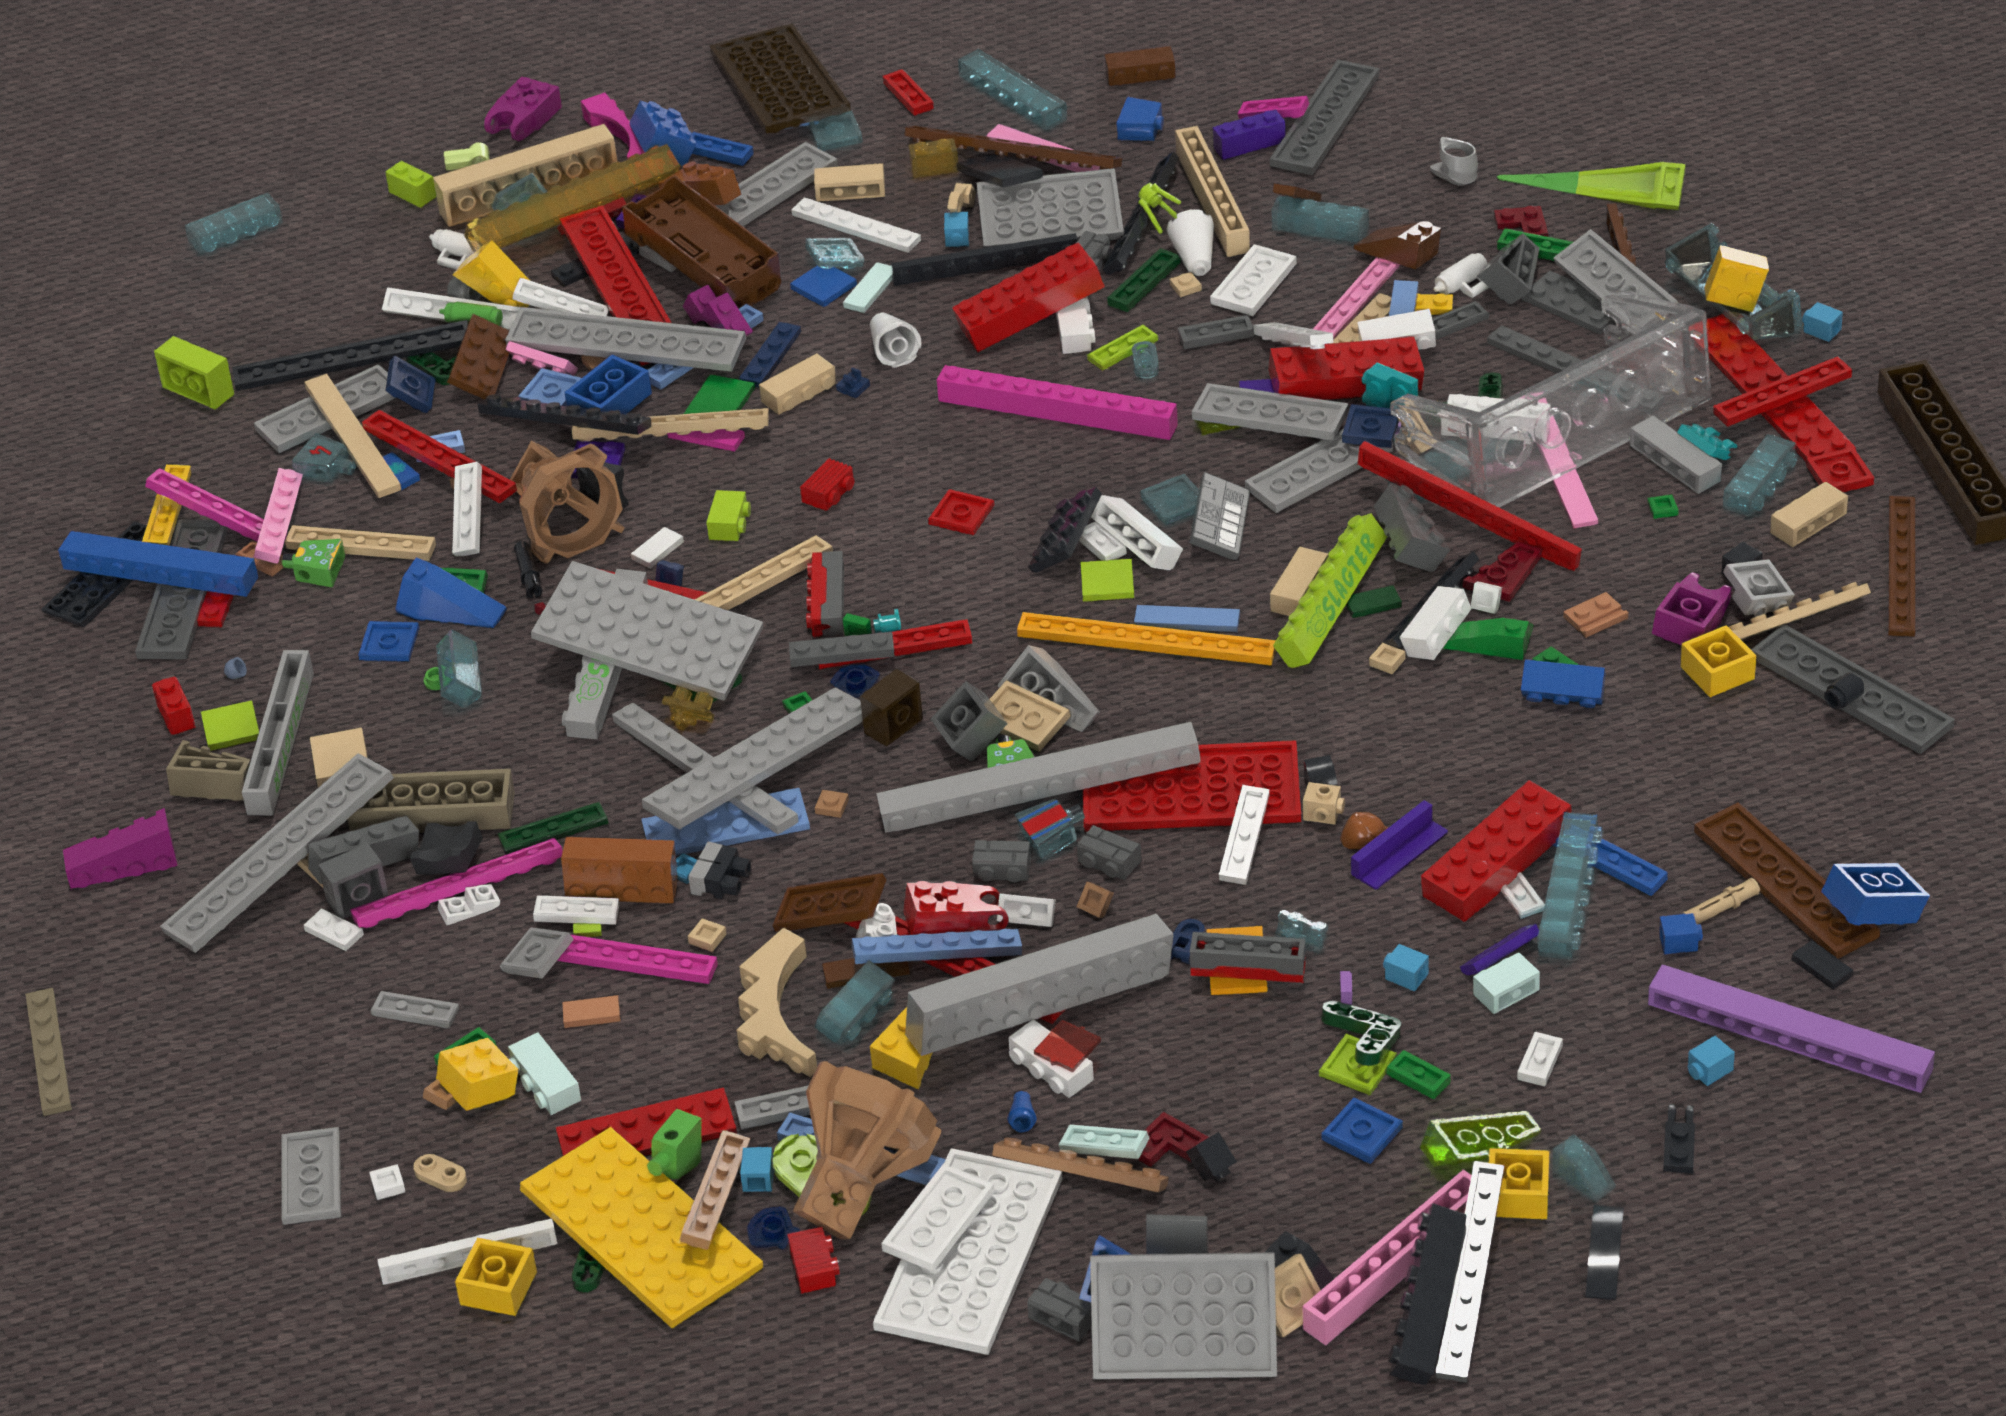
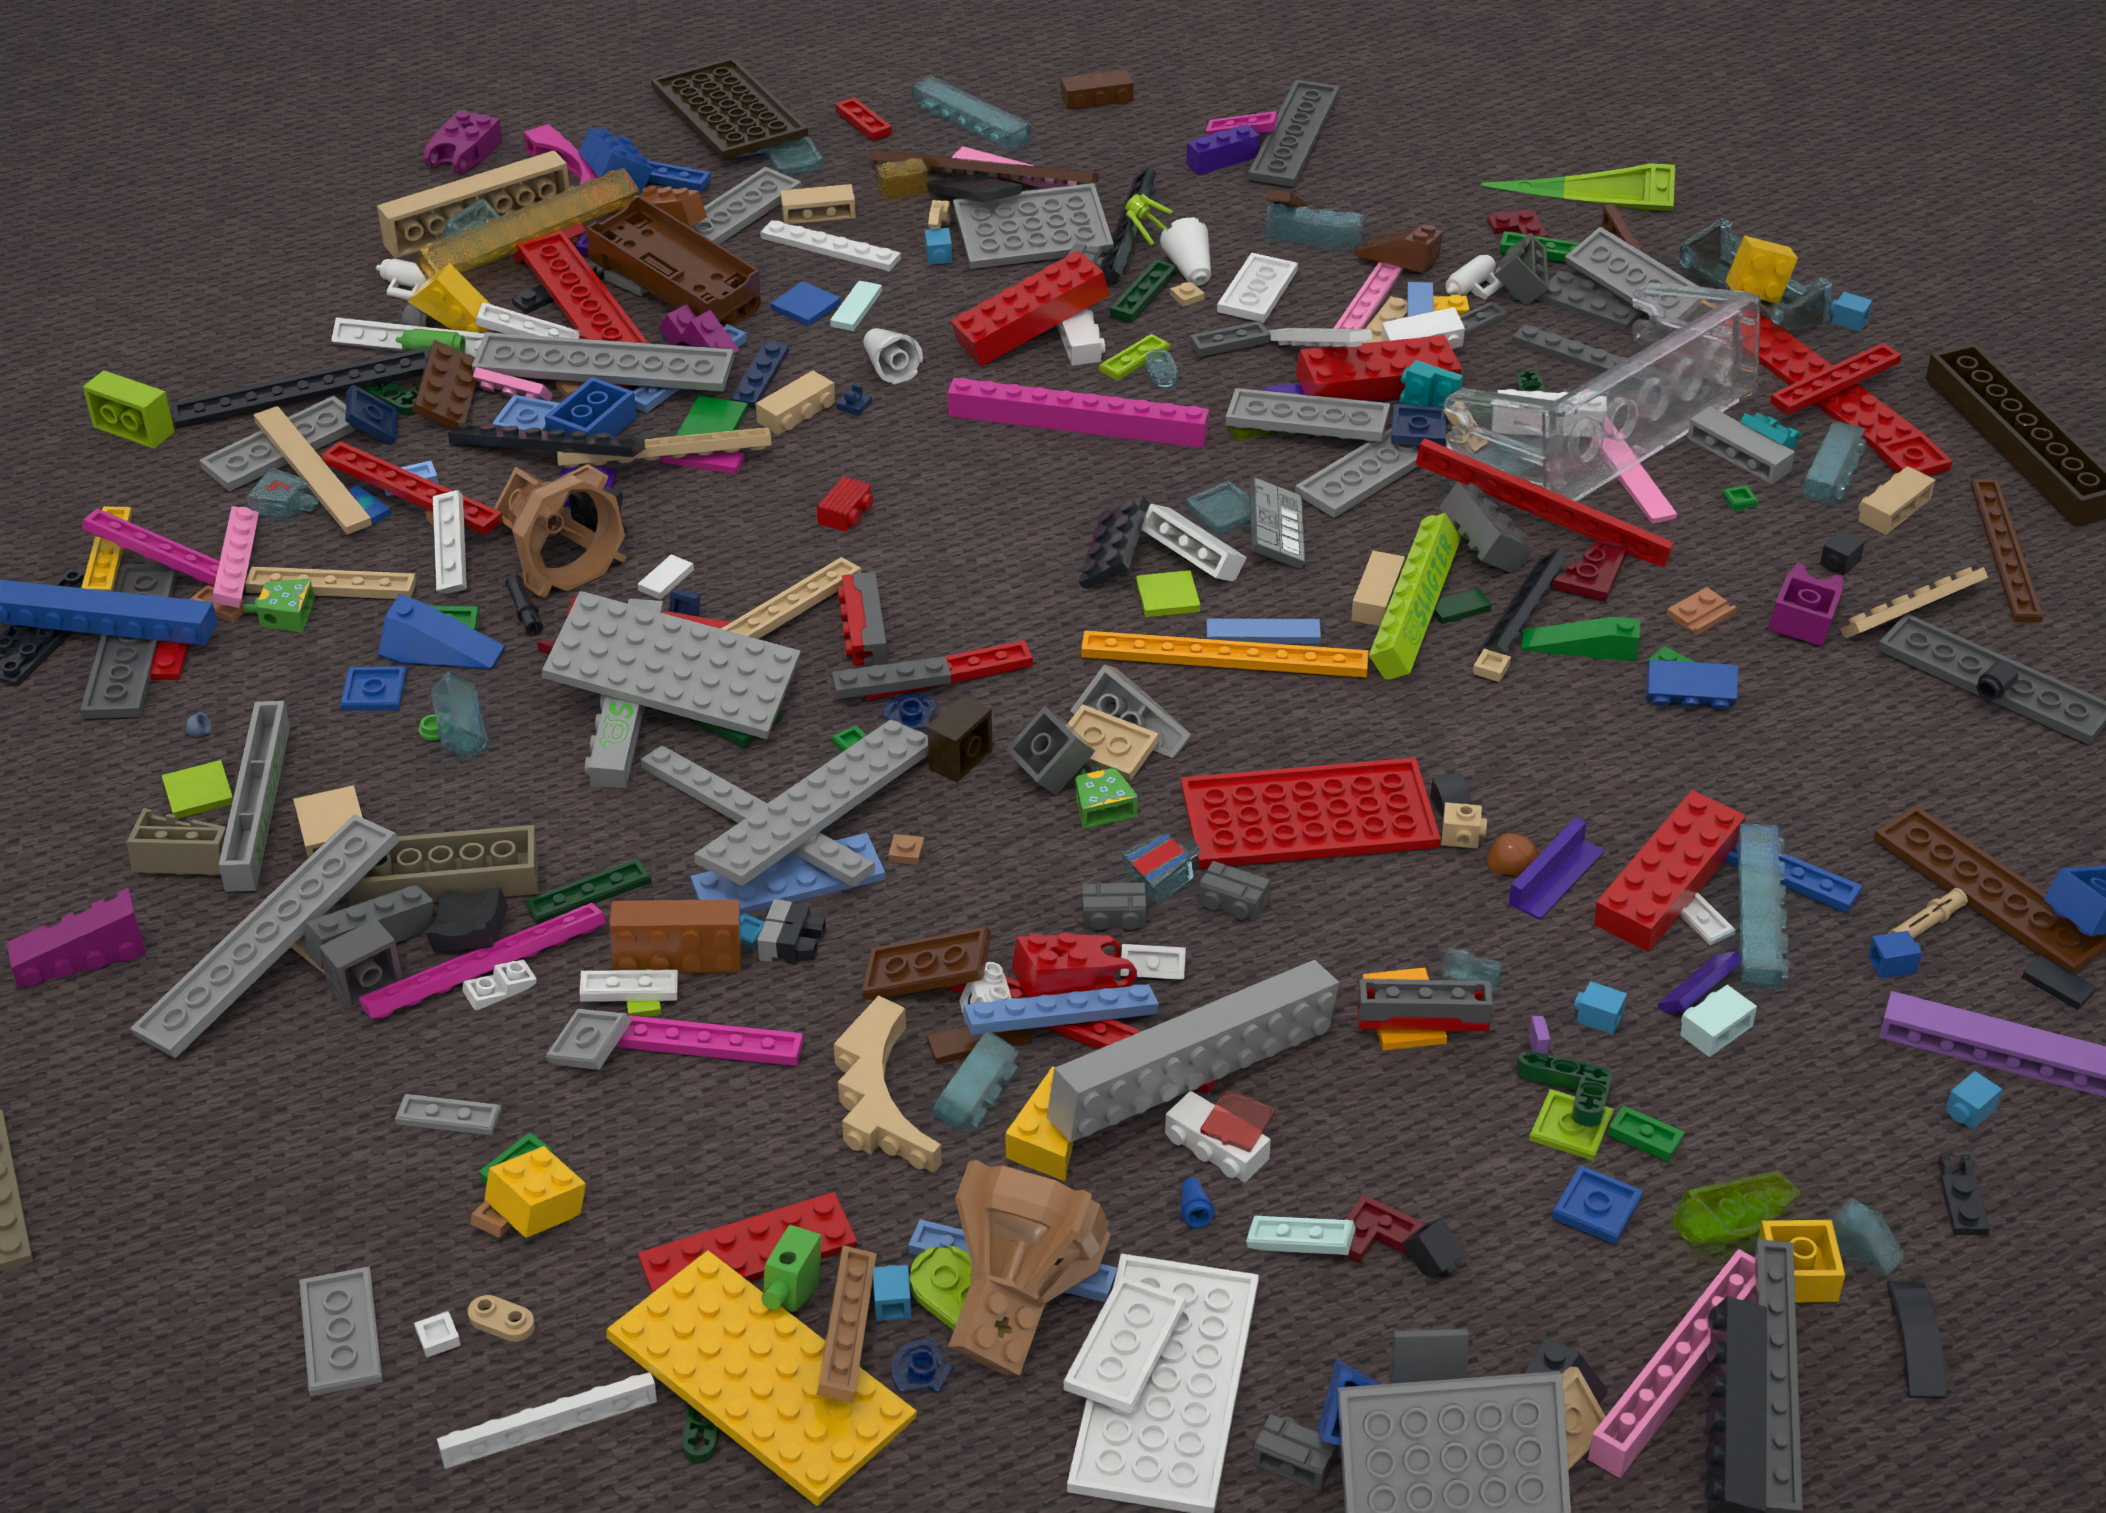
camera: 10 degrees left, 0 degrees up
(173, 705) = (129, 769): red brick -> none
(233, 223) = (161, 260): clear light blue brick -> none
(333, 929) = (340, 1022): white plate -> none
(410, 184) = (351, 216): lime brick -> none
(466, 157) = (405, 188): yellowish green piece -> none
(496, 1276) = (588, 1452): yellow brick -> none
(544, 1074) = (616, 1187): light aqua brick -> none
(591, 1011) = (661, 1106): nougat tile -> none
(687, 712) = (727, 753): clear yellow hips -> none
(707, 935) = (786, 1008): tan plate -> none
(728, 515) = (741, 540): lime brick -> none
(772, 1107) = (904, 1211): light grey plate -> none
(812, 1259) = (977, 1405): red brick -> none
(834, 252) = (813, 272): clear light blue plate -> none
(856, 625) = (902, 651): green plate -> none
(887, 623) = (936, 647): teal brick -> none
(961, 512) = (994, 528): red tile -> none
(979, 259) = (967, 274): black plate -> none
(1039, 777) = (1139, 810): light grey brick -> none
(1091, 1167) = (1294, 1267): medium nougat plate -> none
(1095, 899) = (1229, 946): medium nougat plate -> none
(1102, 542) = (1156, 555): white plate -> none
(1140, 120) = (1108, 139): blue torso -> none
(1183, 936) = (1348, 978): dark blue plate -> none
(1212, 191) = (1198, 202): tan brick -> none
(1244, 835) = (1384, 864): white plate -> none
(1435, 623) = (1538, 625): white brick -> none
(1456, 169) = (1440, 176): light grey helmet -> none
(1486, 597) = (1582, 597): white plate -> none
(1540, 1059) = (1779, 1108): white plate -> none
(1718, 661) = (1850, 654): yellow brick -> none
(1758, 587) = (1870, 576): light grey plate -> none

